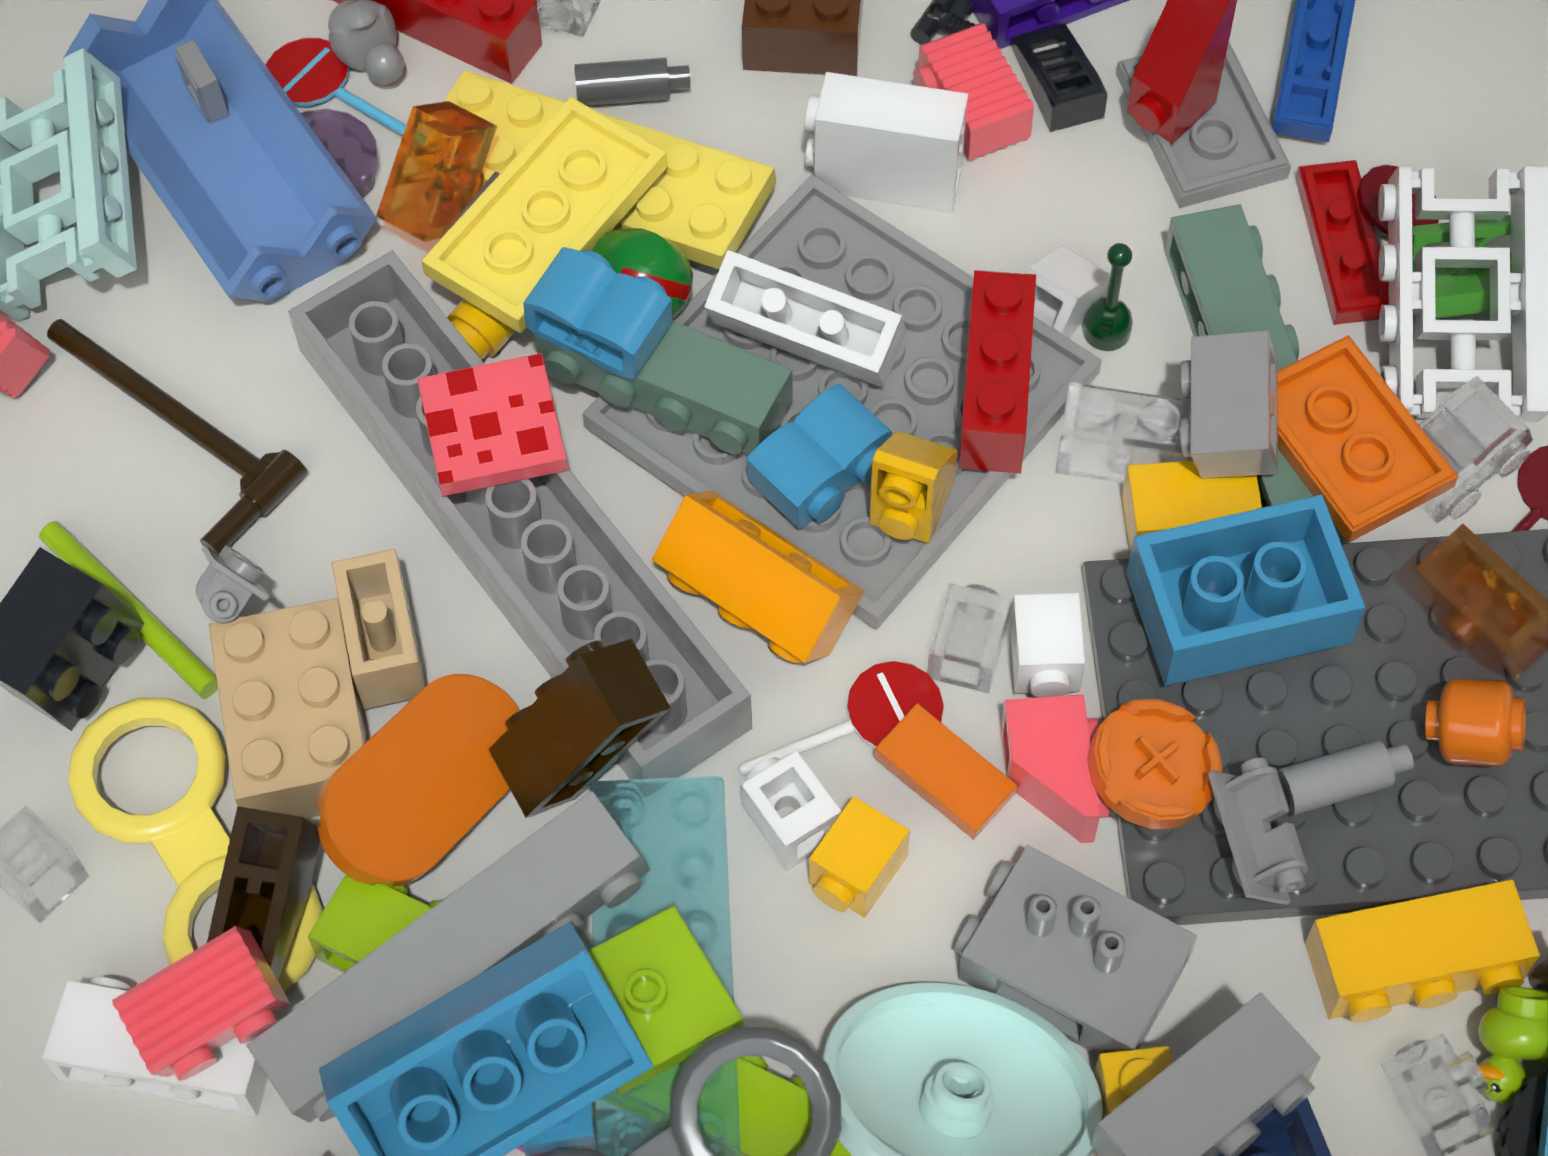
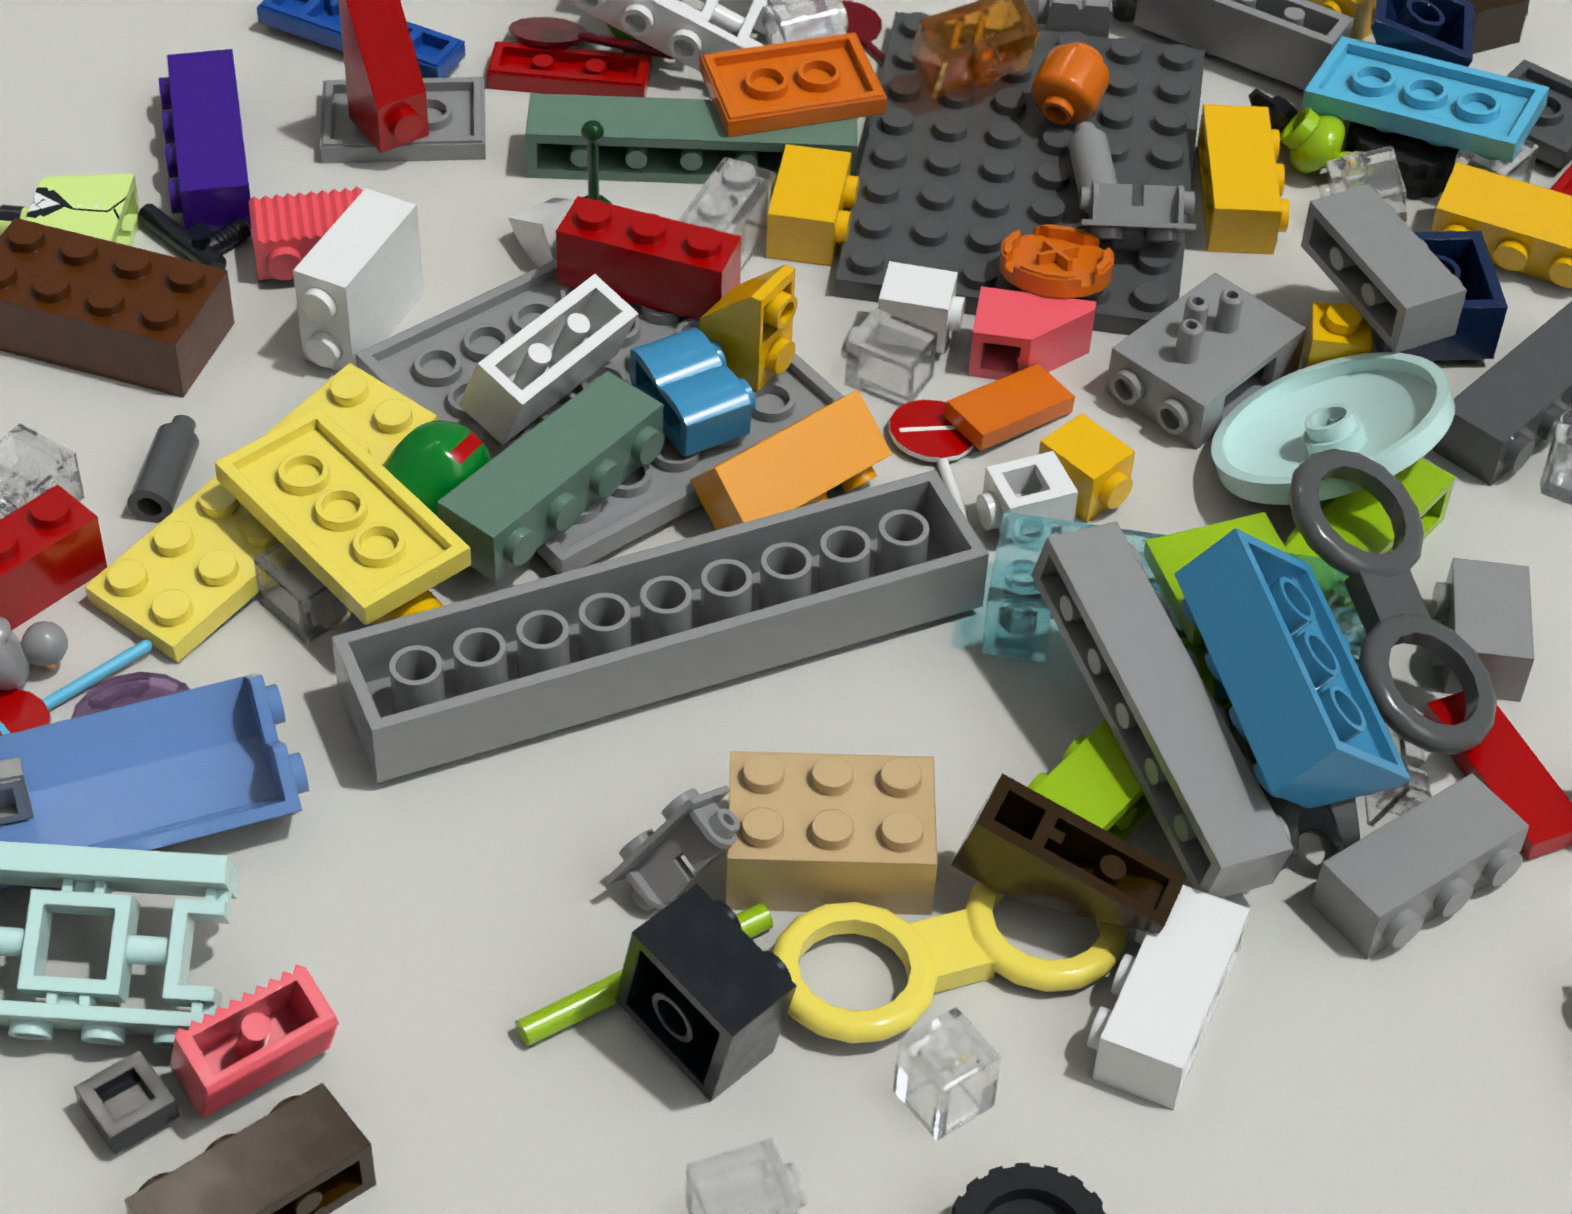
camera: 80 degrees left, 15 degrees down
(201, 1005) = (1175, 890): coral brick -> none
(262, 480) = (526, 828): dark brown bar -> none
(378, 628) = (755, 724): tan brick -> none
(416, 783) = (945, 726): orange tile -> none
(436, 169) = (236, 598): clear orange brick -> none
(492, 424) = (586, 585): coral tile -> none
(578, 725) = (944, 579): dark brown brick -> none
(598, 311) = (505, 468): dark azure brick -> none
(1058, 108) = (324, 173): black slope -> none
(1232, 405) = (755, 117): light grey brick -> none
(1244, 590) = (923, 165): dark azure brick -> none

